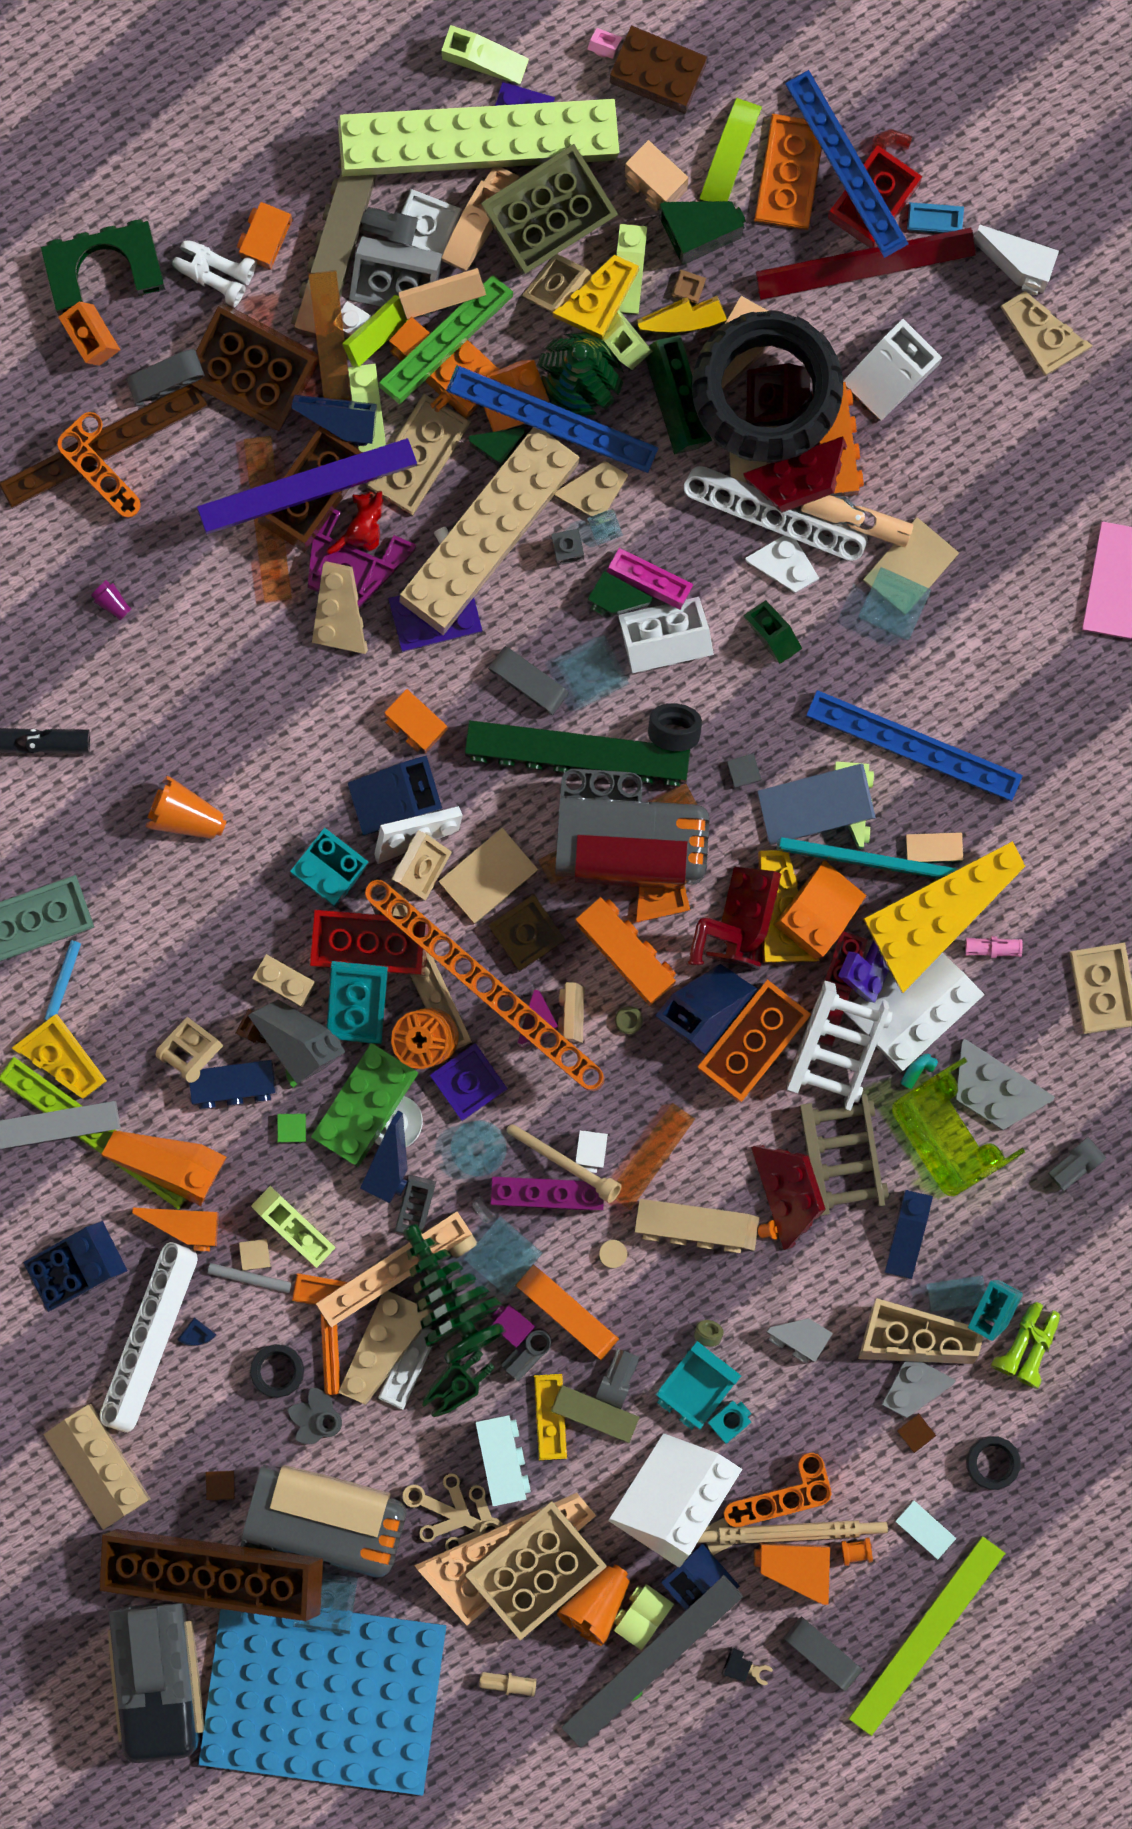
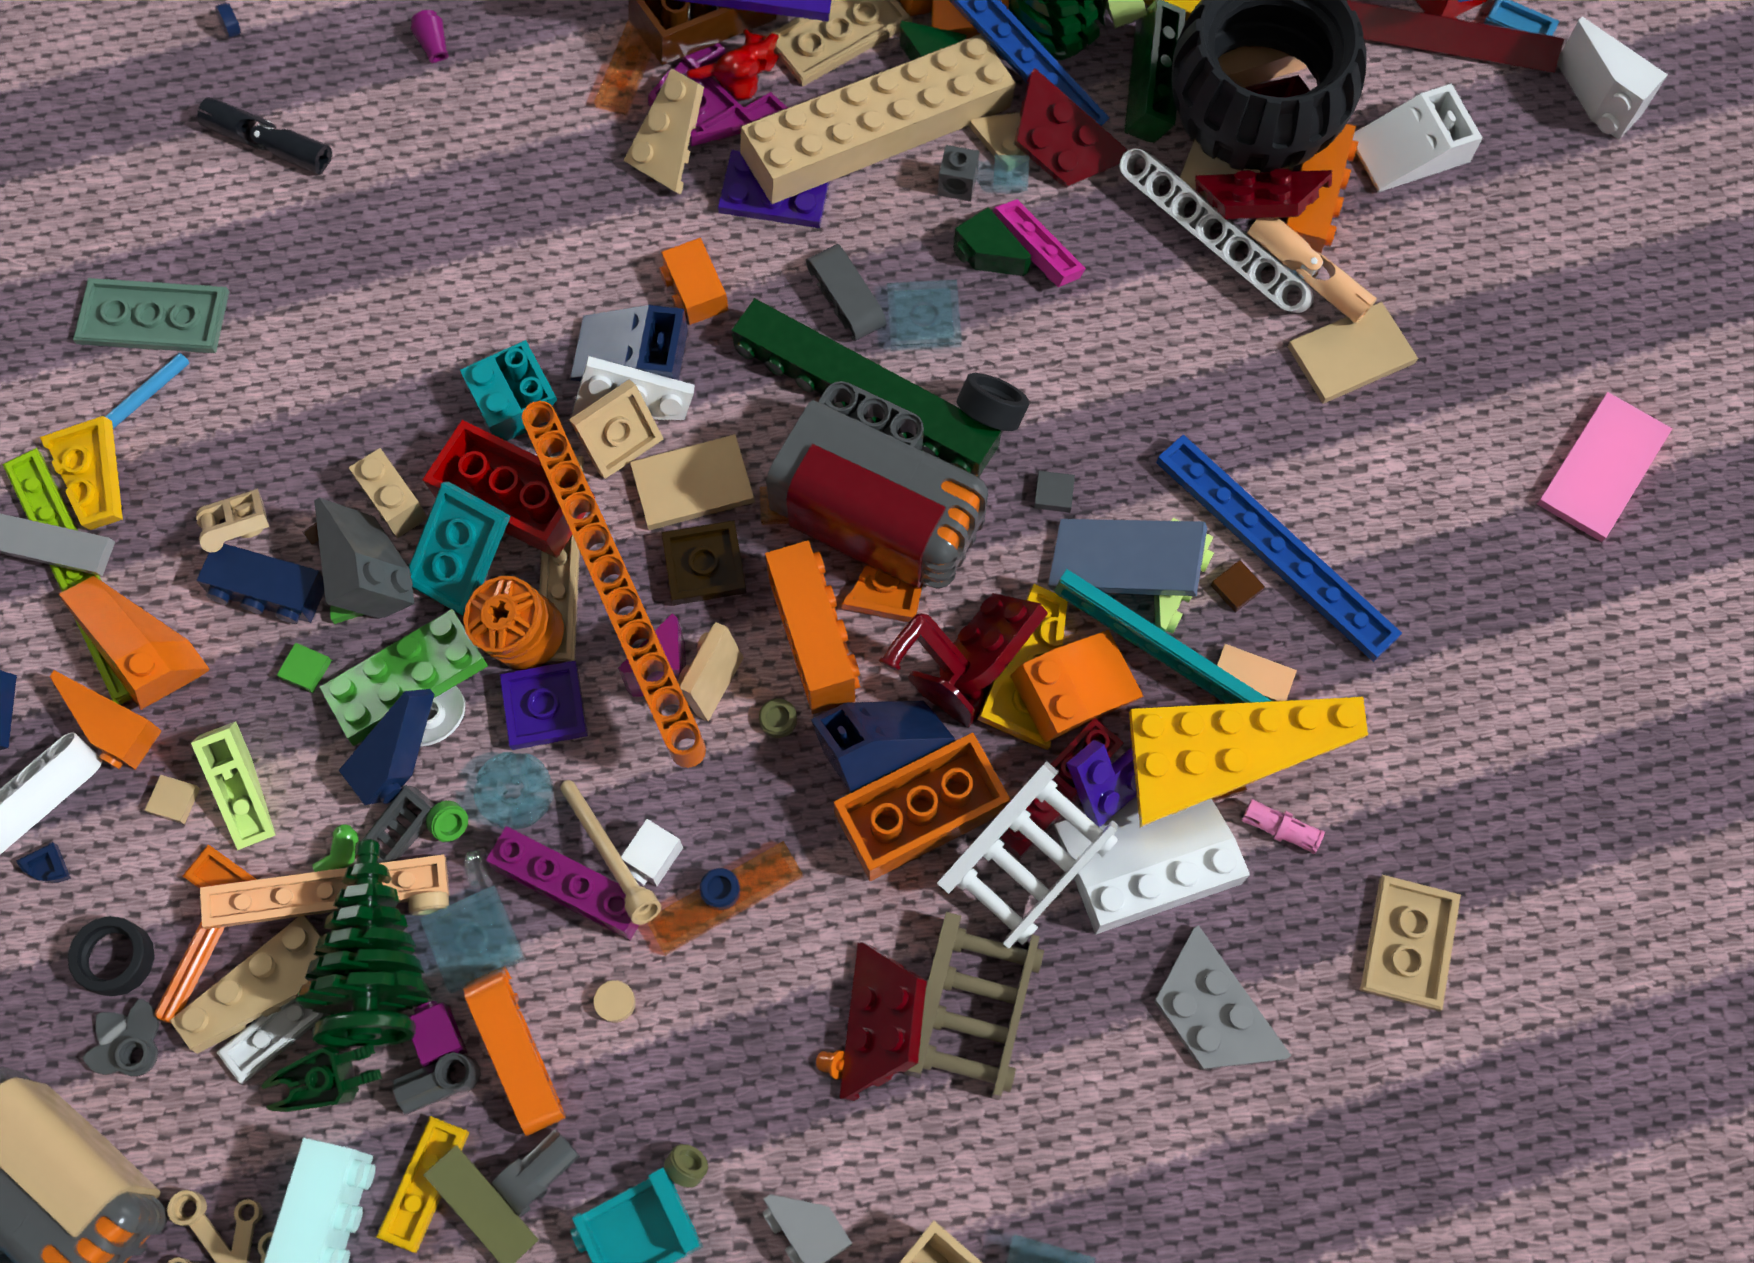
camera: 25 degrees right, 15 degrees down
(184, 812) = (378, 264): orange cone -> none
(250, 1278) = (149, 825): light grey bar -> none
(387, 1239) = (342, 850): none -> bright green arm
(446, 1188) = (447, 821): none -> bright green tile
(633, 482) = (1062, 135): none -> dark red wing
(647, 1153) = (720, 889): none -> dark blue tile
(665, 635) = (1027, 309): white slope -> none
(696, 1224) = (740, 1010): tan wedge -> none
(773, 631) = (1159, 354): dark green slope -> none
(785, 563) = (1203, 290): white wing -> none
(894, 603) = (1317, 379): clear light blue tile -> none
(898, 786) = (1237, 586): none -> reddish brown tile
(908, 1233) = (1016, 1152): dark blue slope -> none
(915, 1069) = (1118, 935): teal arm -> none
(943, 1137) = (1116, 1037): clear neon green windscreen -> none
(1044, 335) = (1605, 176): tan wing -> none
(1080, 1161) = (1295, 1158): dark grey piece -> none

